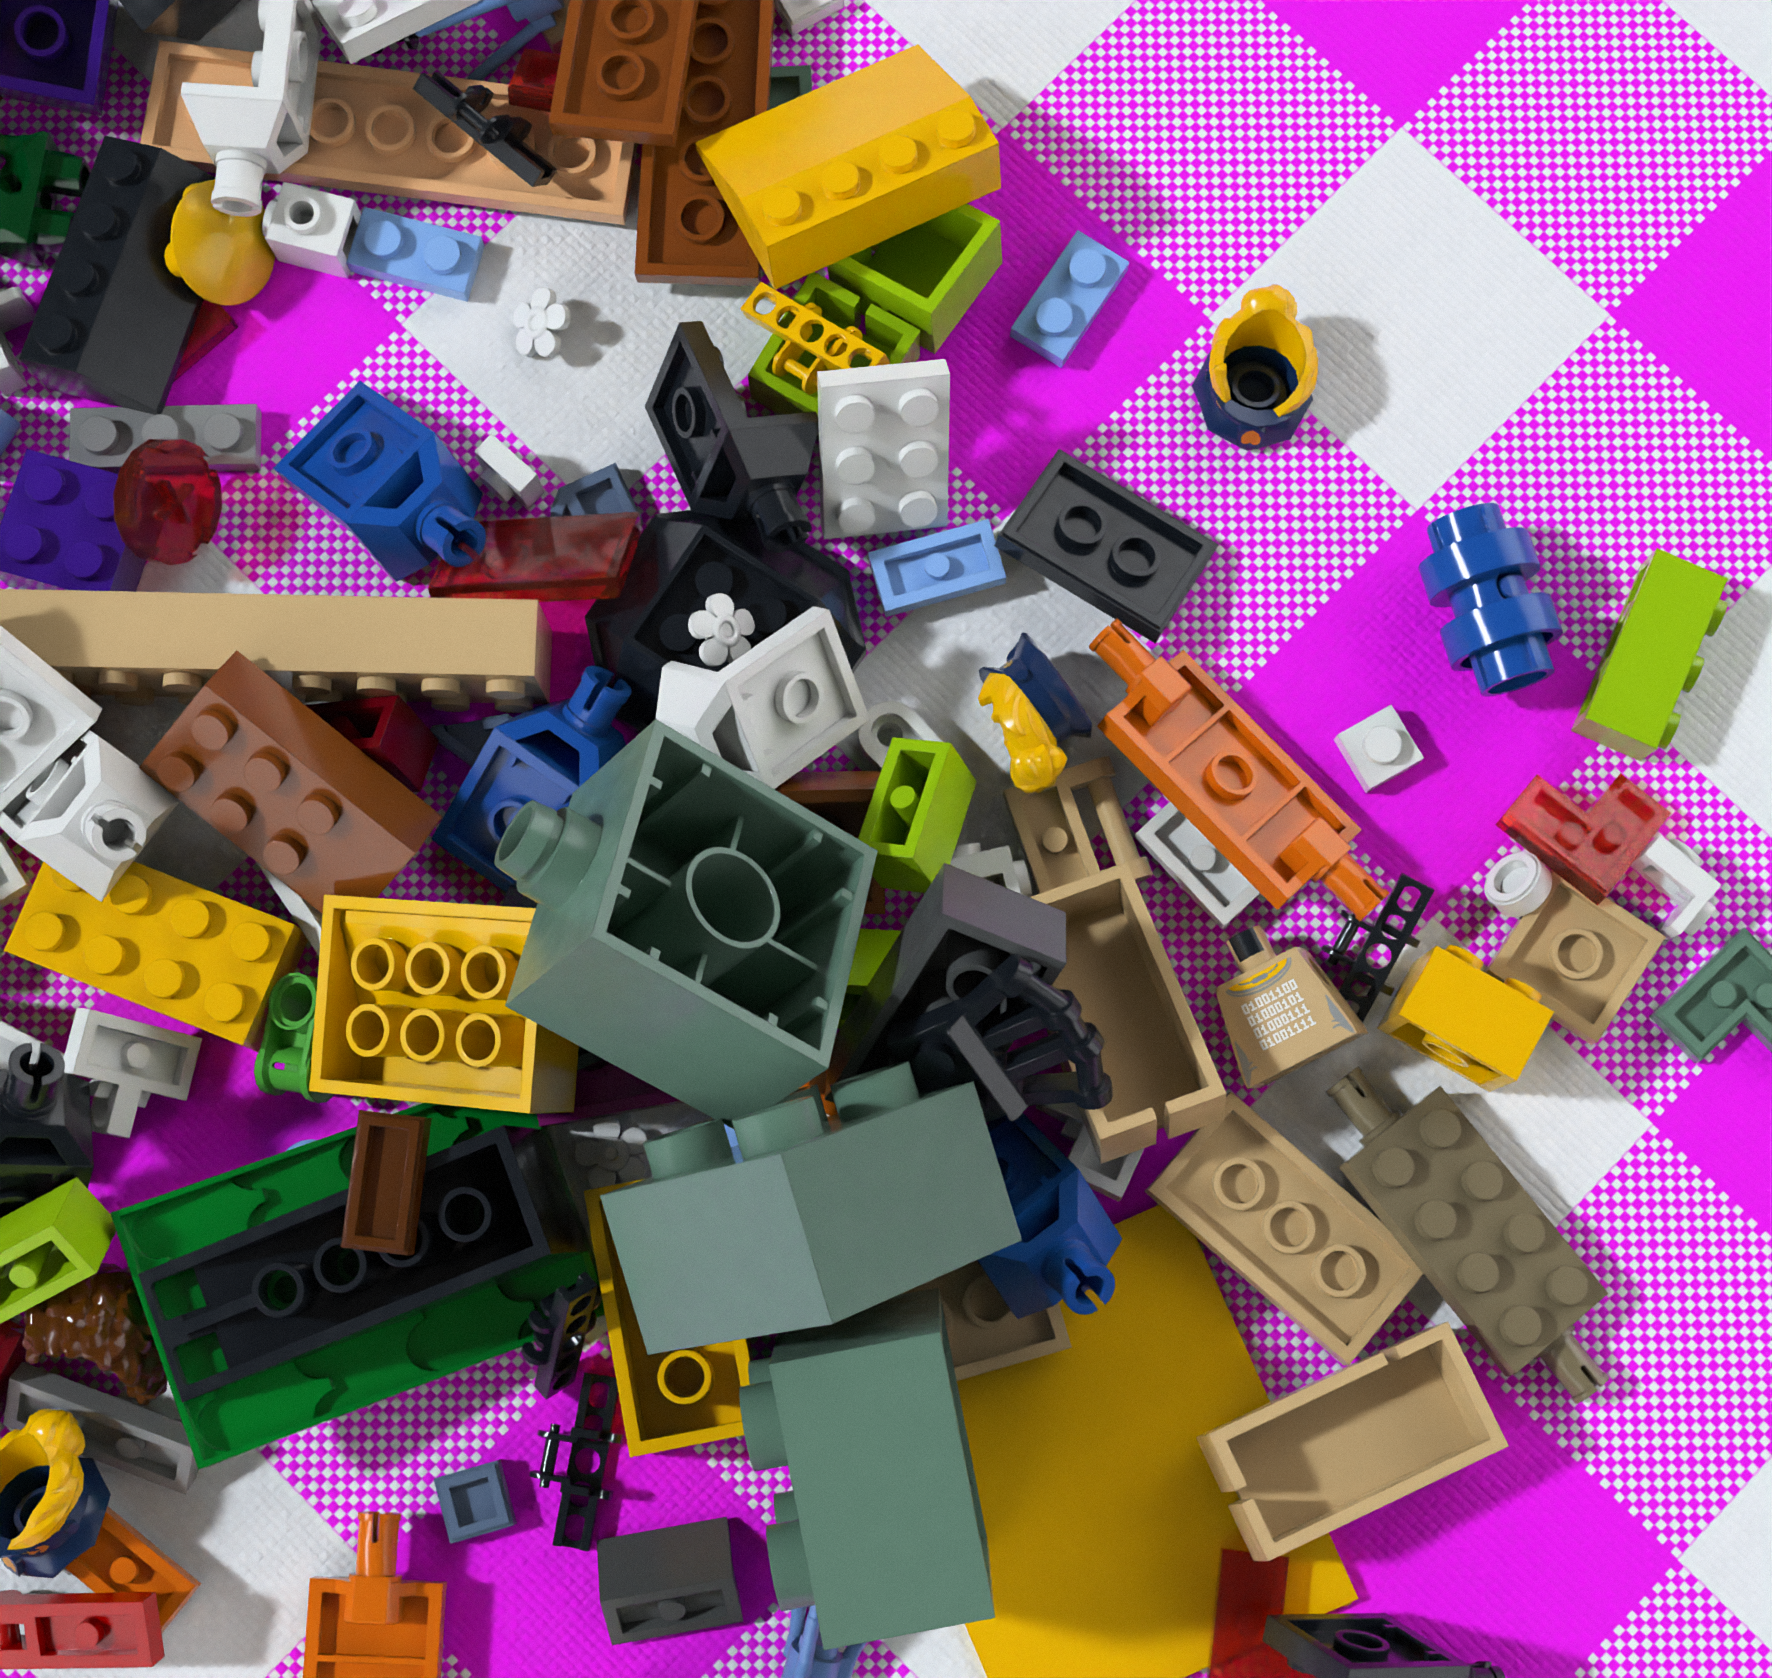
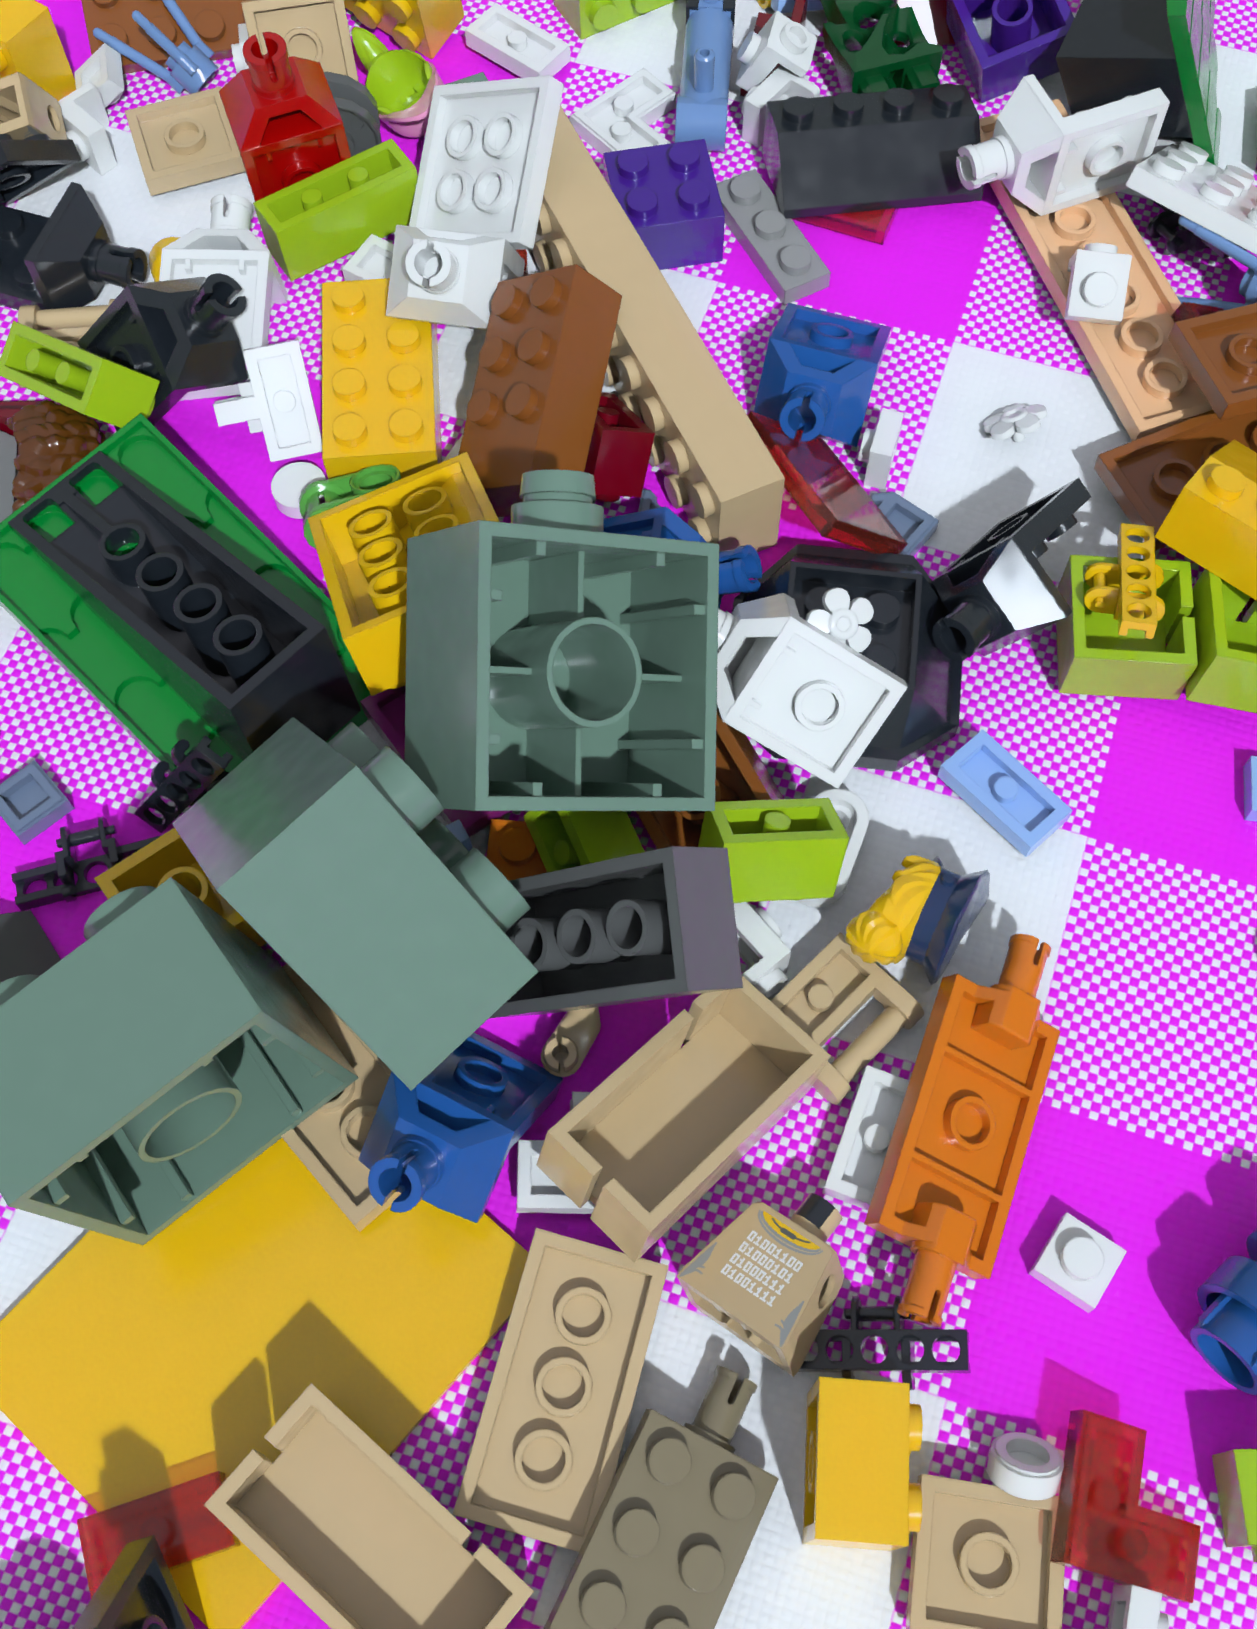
camera: 65 degrees right, 15 degrees down
(167, 500) = (719, 239): clear red tile -> none
(216, 252) = (928, 197): yellow dish -> none
(232, 1085) = (289, 484): none -> white tile
(311, 228) = (986, 248): white brick -> none
(386, 1182) = (238, 566): reddish brown tile -> none
(415, 254) = (1013, 323): light blue plate -> none
(438, 155) = (1097, 284): none -> white bracket
(499, 135) = (1143, 310): black piece -> none
(883, 448) = (1078, 681): white plate -> none
(959, 1047) = (569, 952): black plate -> none
(1106, 545) = (1112, 922): black tile -> none

